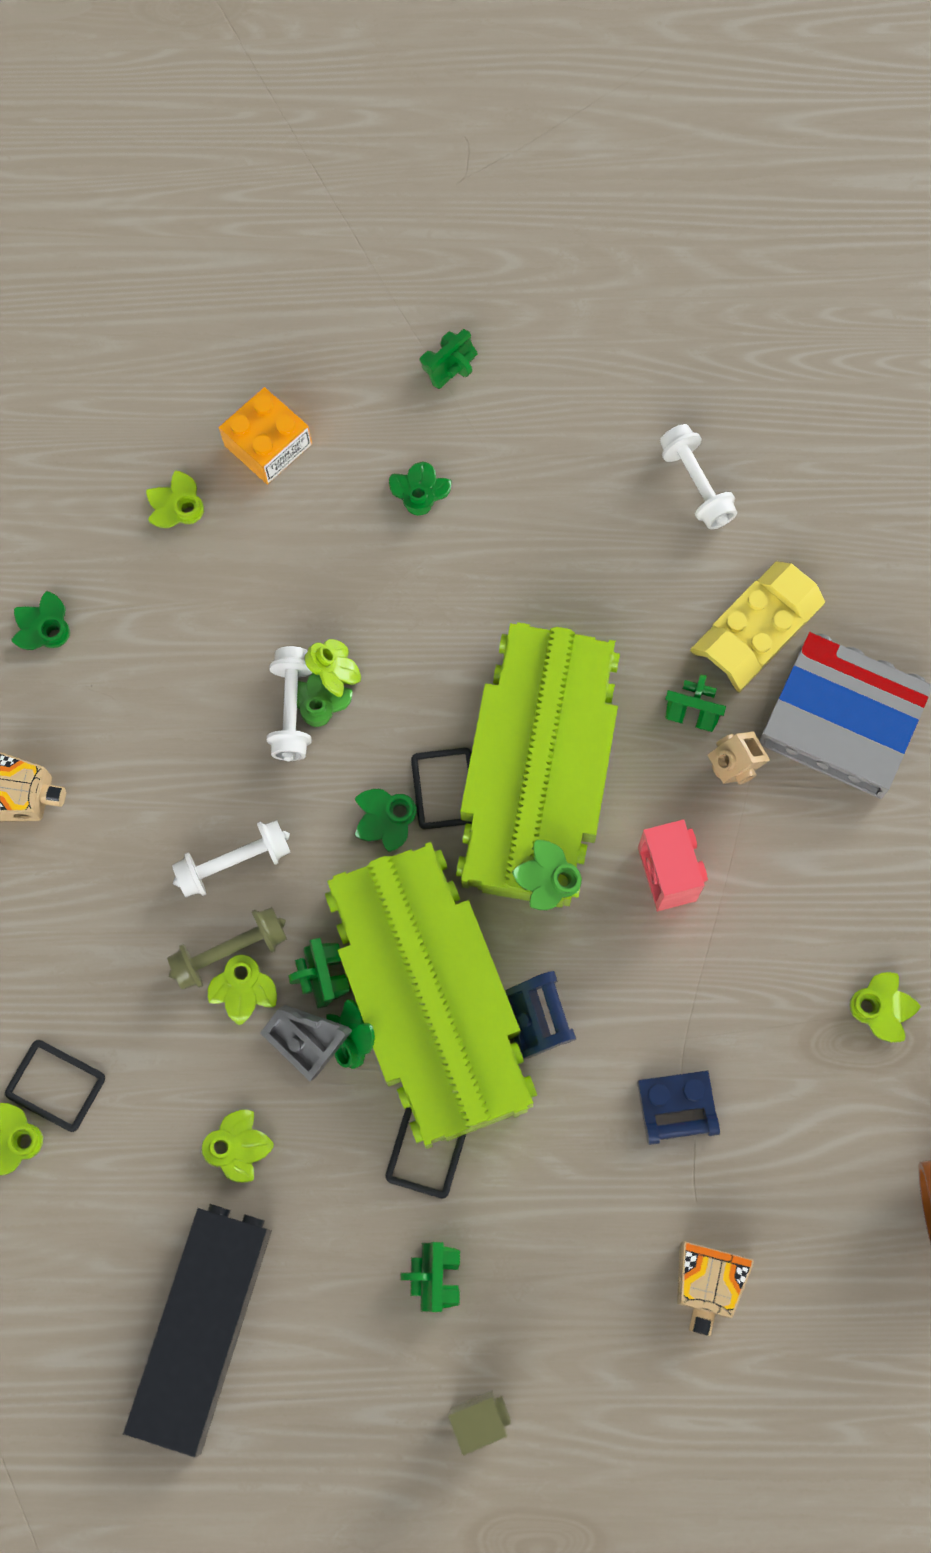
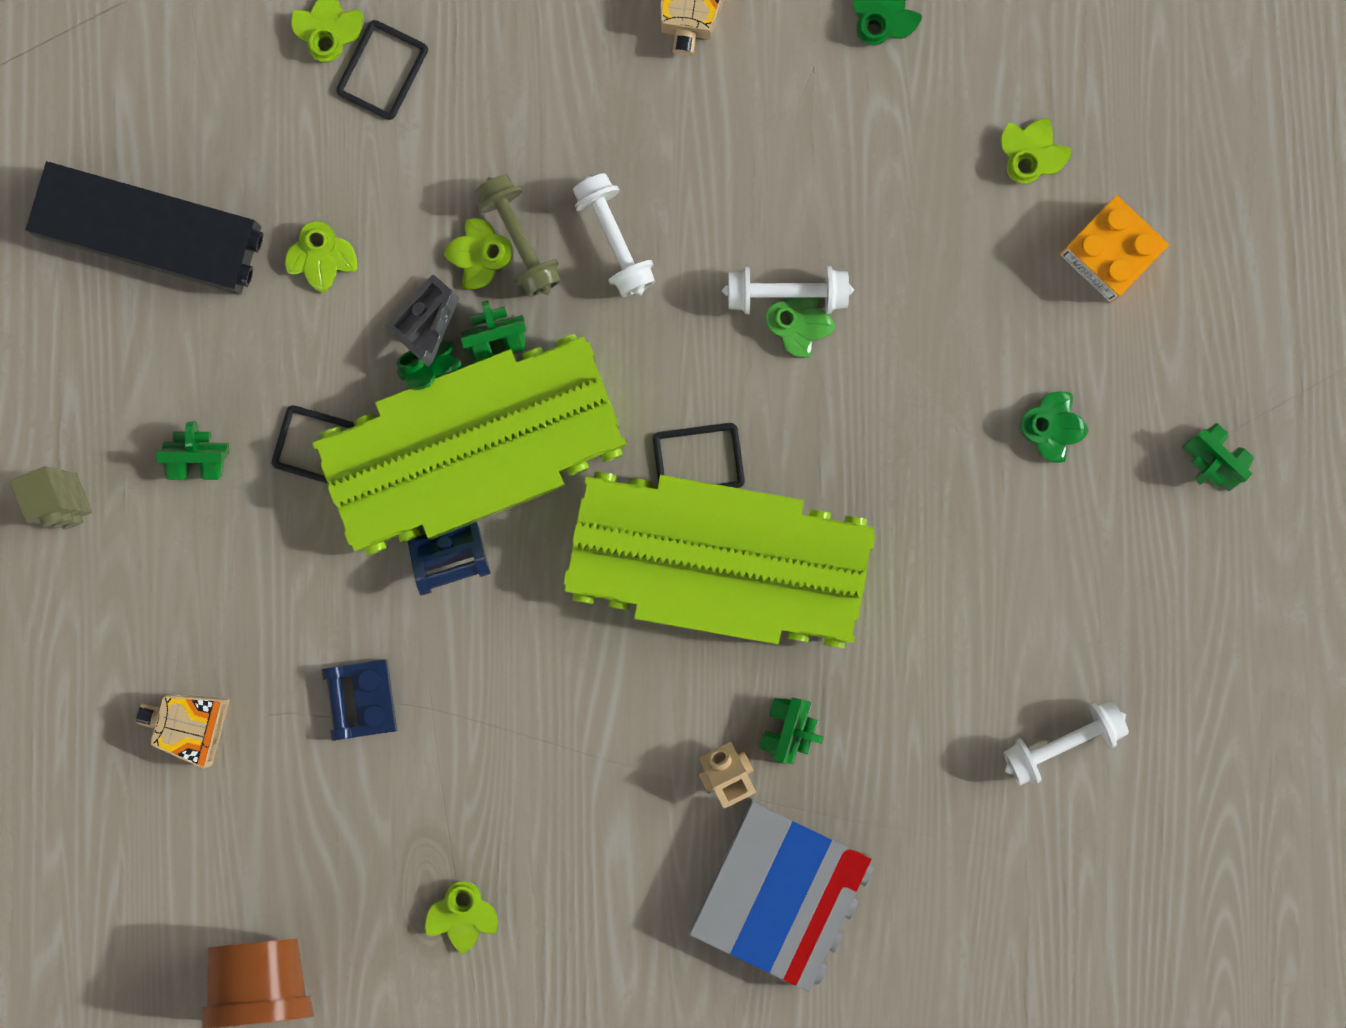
camera: 85 degrees right, 15 degrees up
(332, 665) = (832, 335): lime plate -> none
(380, 818) = (661, 391): green plate -> none
(542, 876) = (586, 561): bright green plate -> none
(672, 864) = (603, 699): coral brick -> none
(760, 623) = (889, 806): light yellow piece -> none

